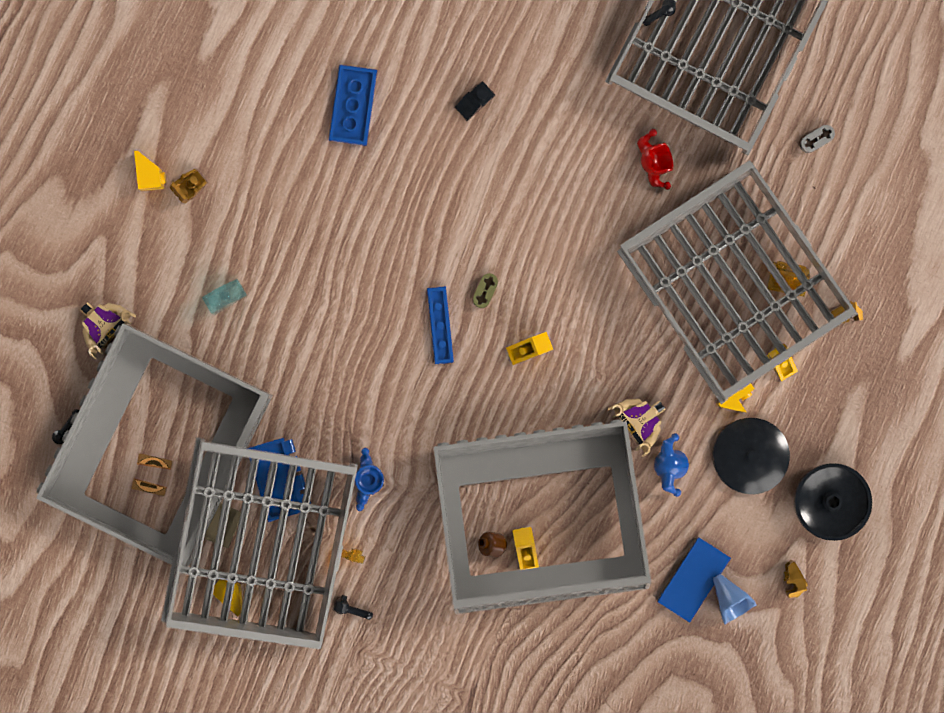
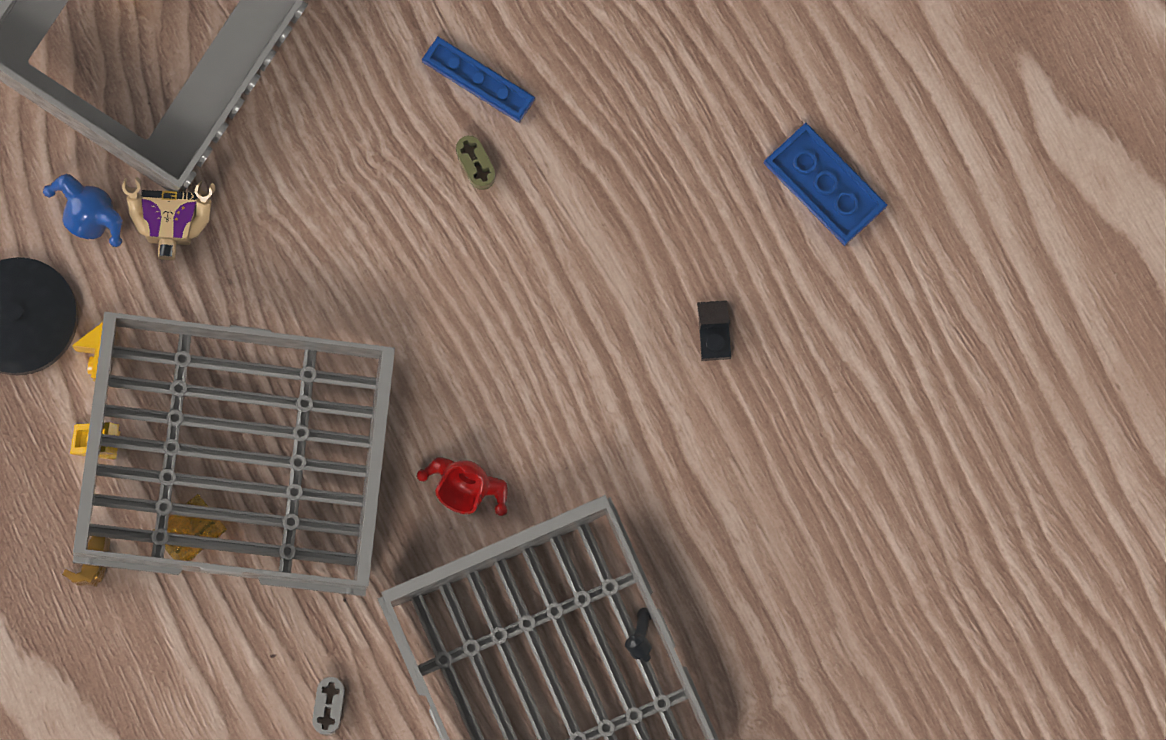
camera: 125 degrees right, 10 degrees down
(529, 348) = (363, 158): yellow slope -> none

